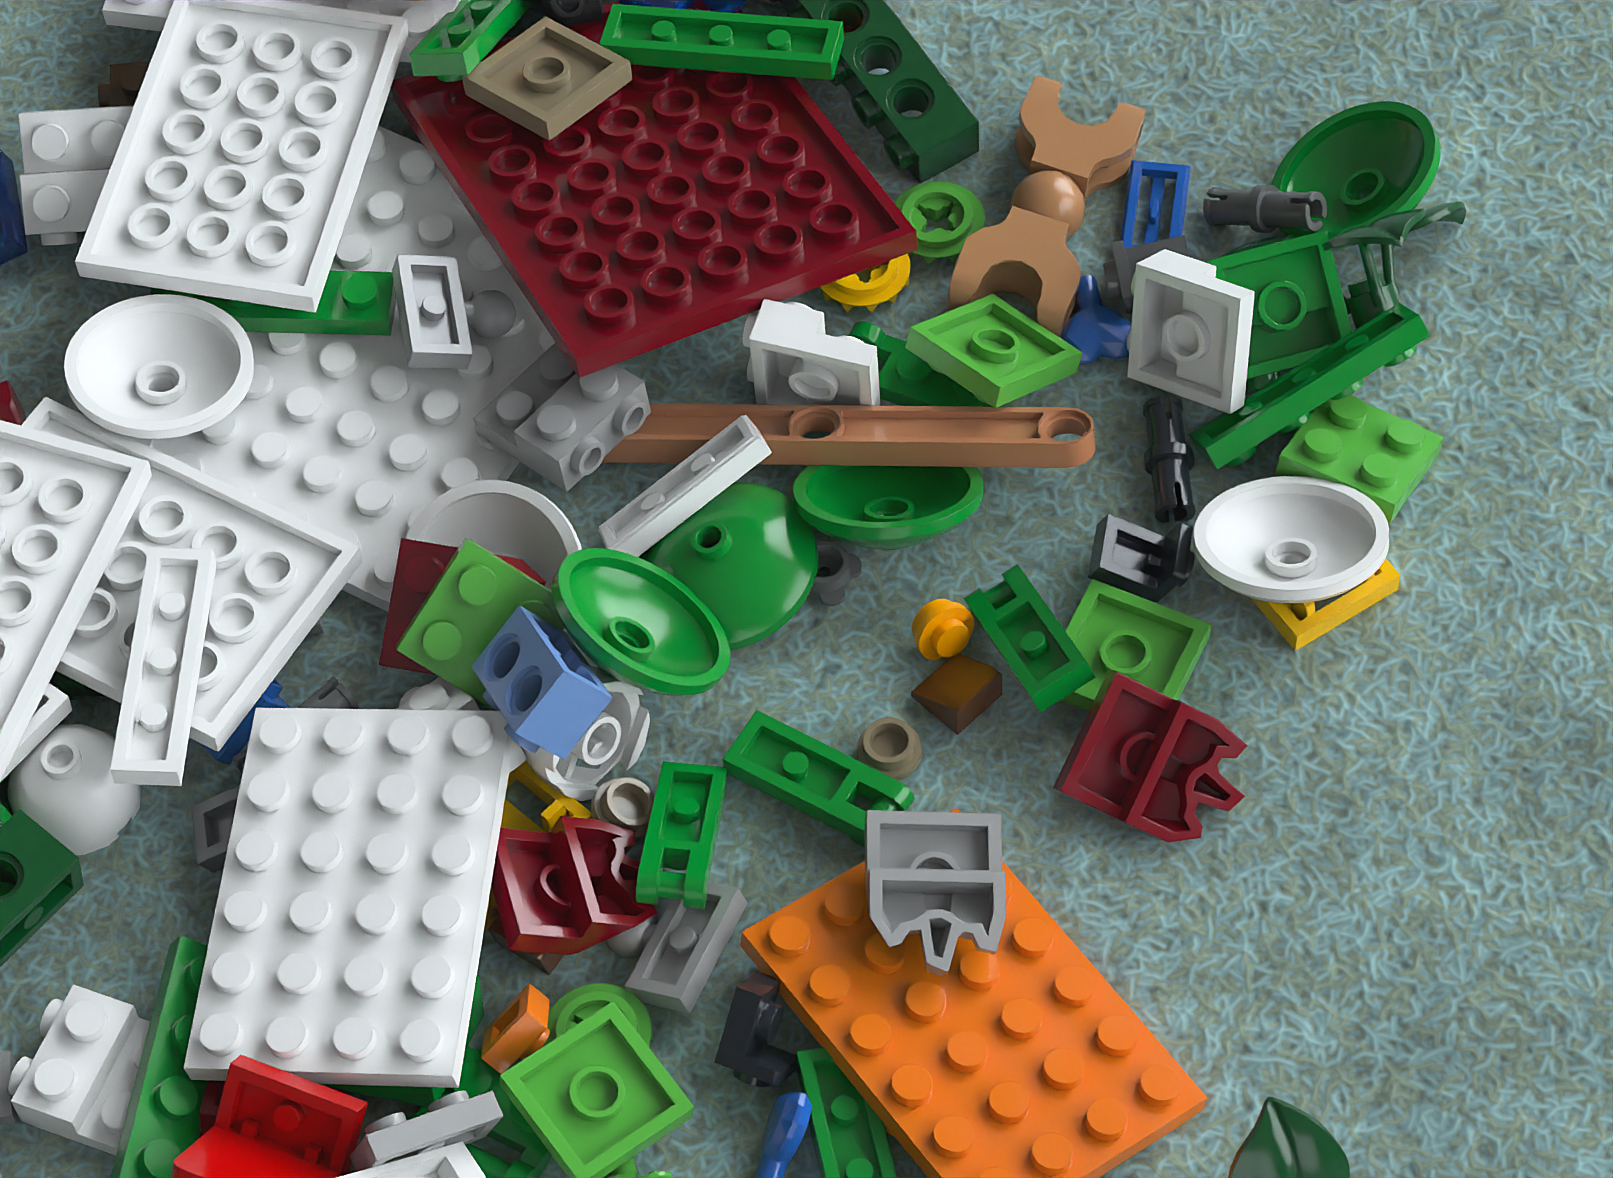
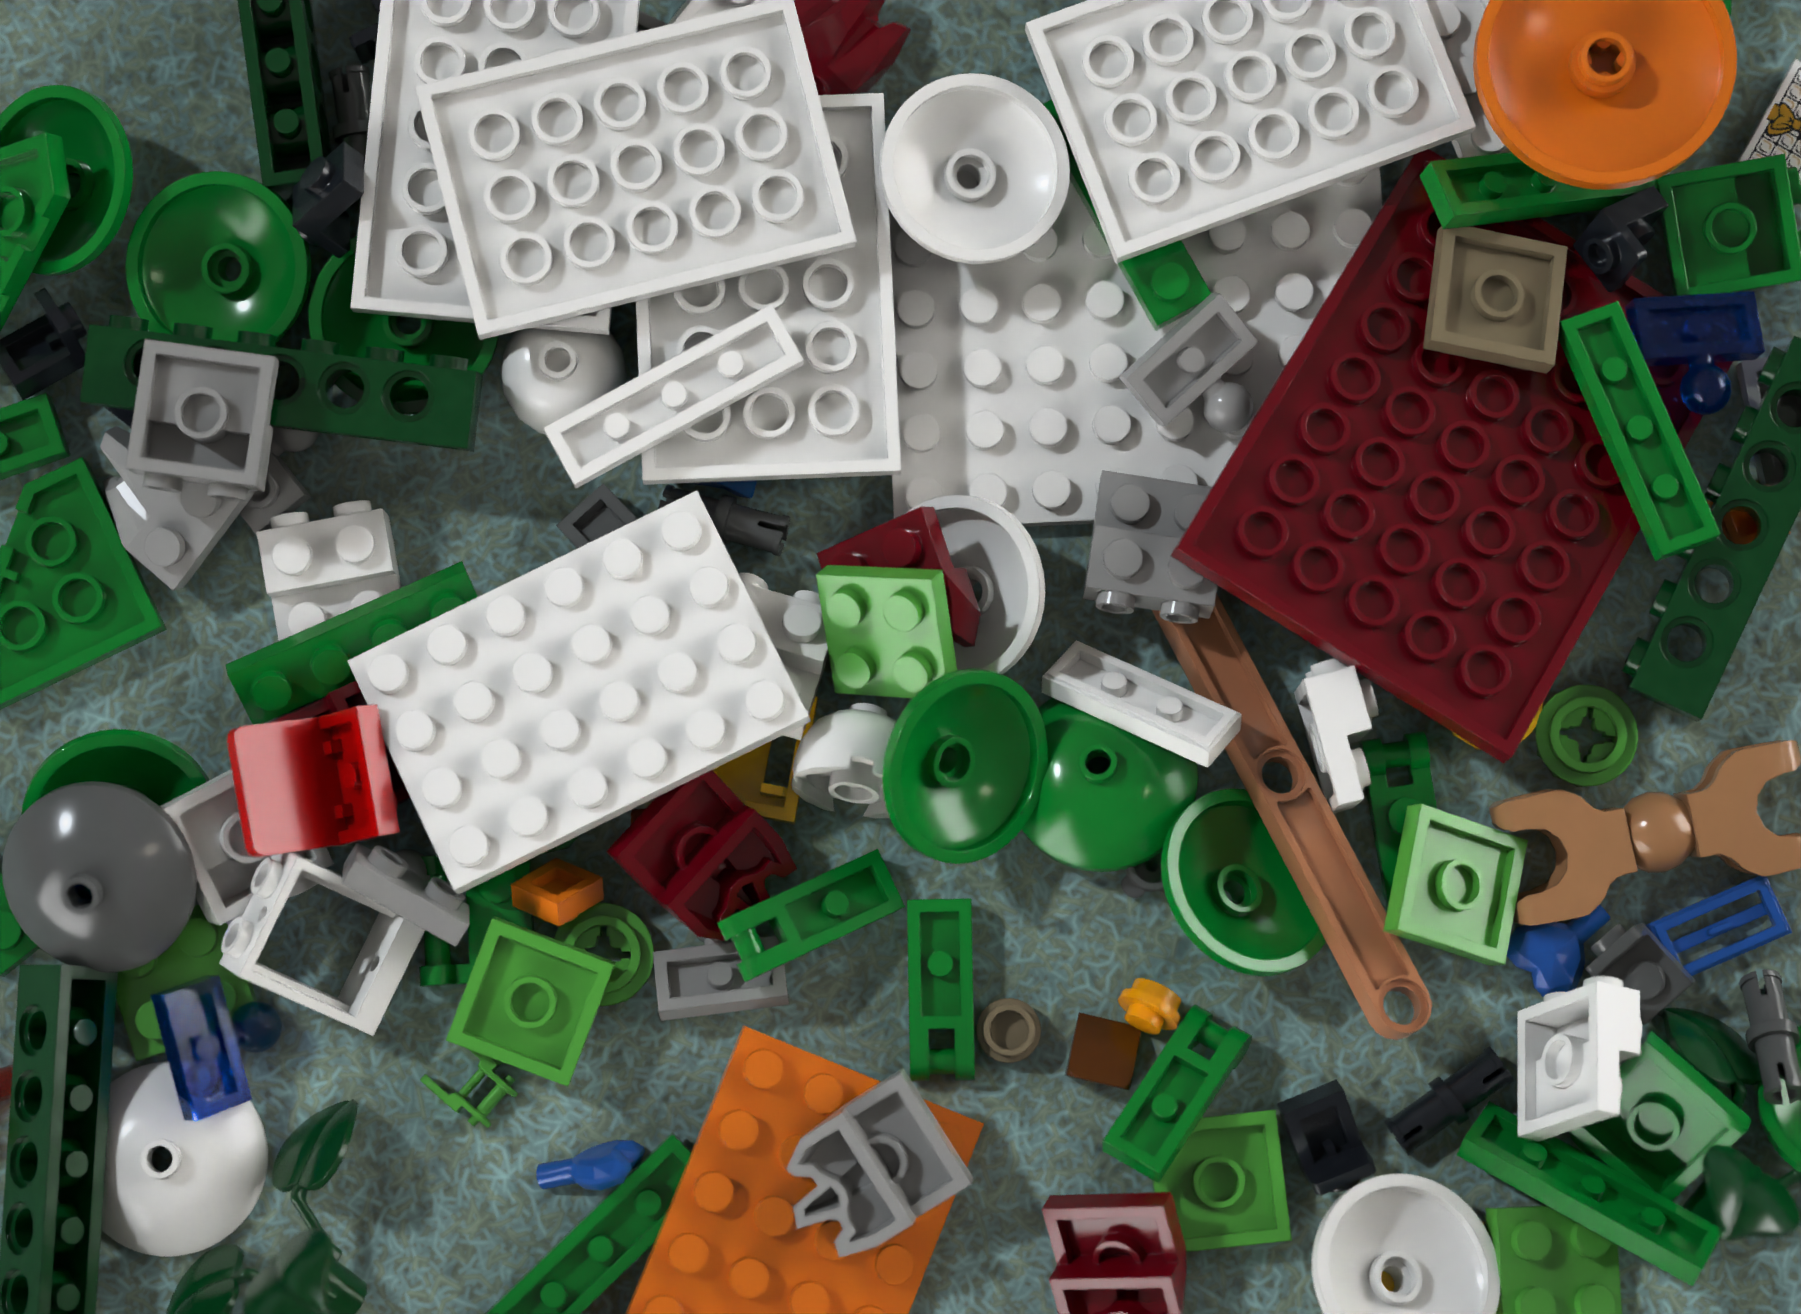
camera: 55 degrees right, 25 degrees up
(540, 684) = (841, 728): medium blue brick -> none
(624, 803) = (816, 842): dark tan plate -> none
(750, 1023) = (658, 1095): black bracket -> none

